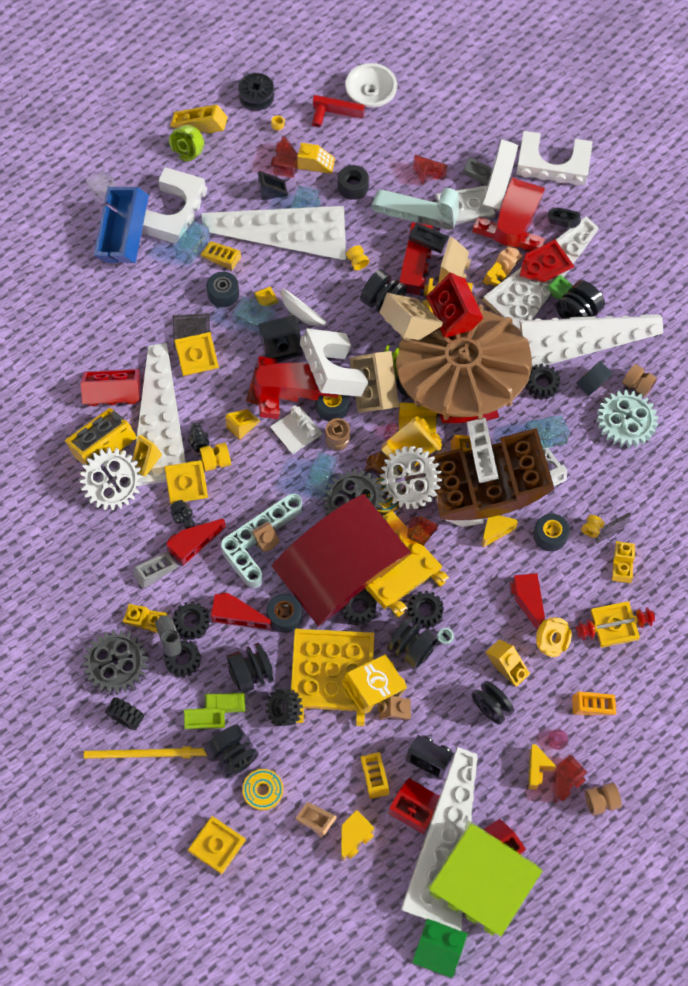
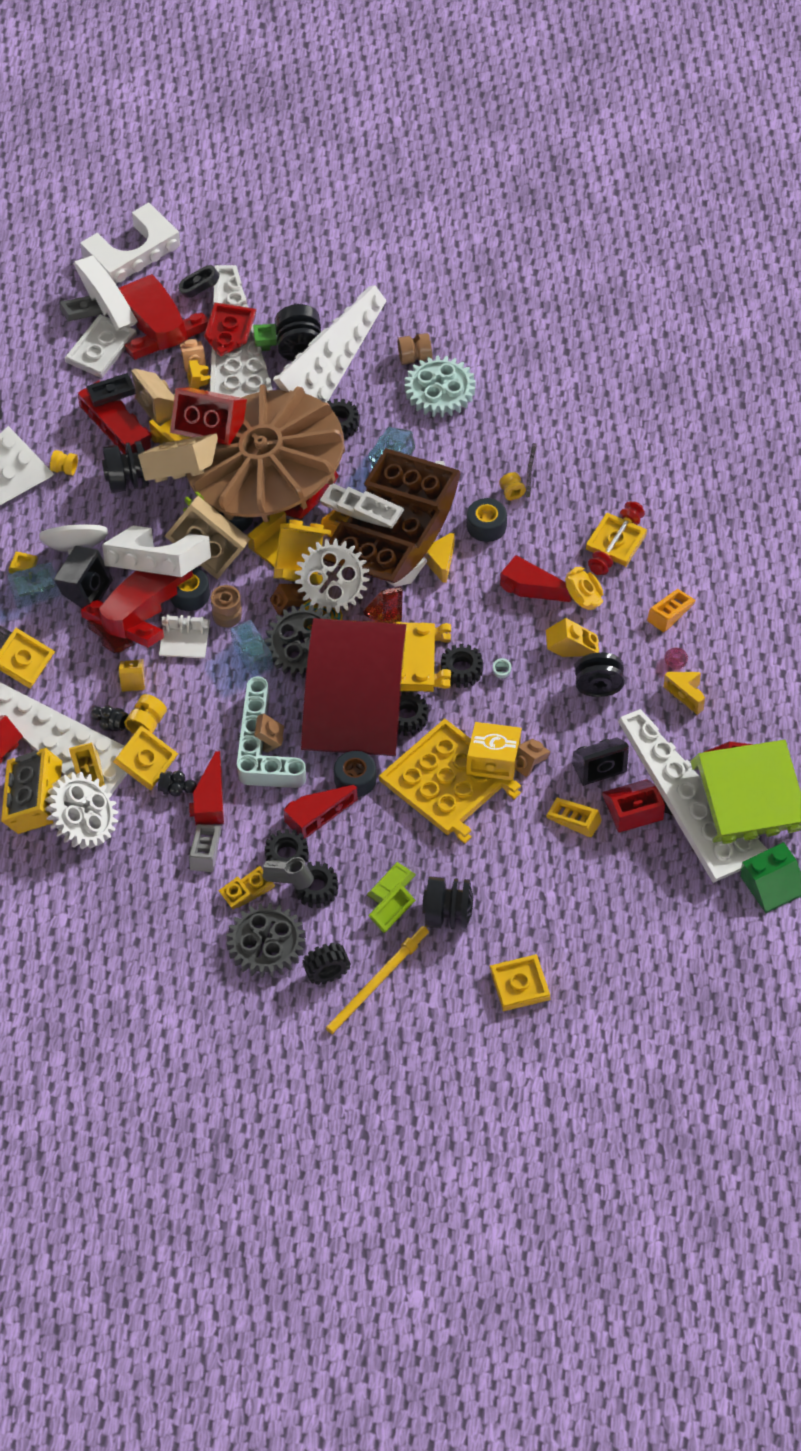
camera: 45 degrees left, 10 degrees down
(246, 669) = (383, 833): black wheel -> none
(266, 801) = (503, 899): yellow tile -> none
(292, 707) = (458, 827): black tyre -> none
(315, 819) = (572, 885): light nougat slope -> none
(354, 833) = (612, 867): yellow slope -> none
(390, 430) = (265, 568): clear pink arm -> none
(410, 641) = (488, 692): black wheel -> none
(417, 210) = (71, 379): light aqua beam -> none
(425, 167) = (31, 343): clear red slope -> none
(566, 776) = (716, 675): clear red slope -> none
(594, 378) = (377, 378): black wheel -> none
(601, 799) = (760, 663): medium nougat wheel -> none
(623, 562) = (565, 491): yellow slope -> none

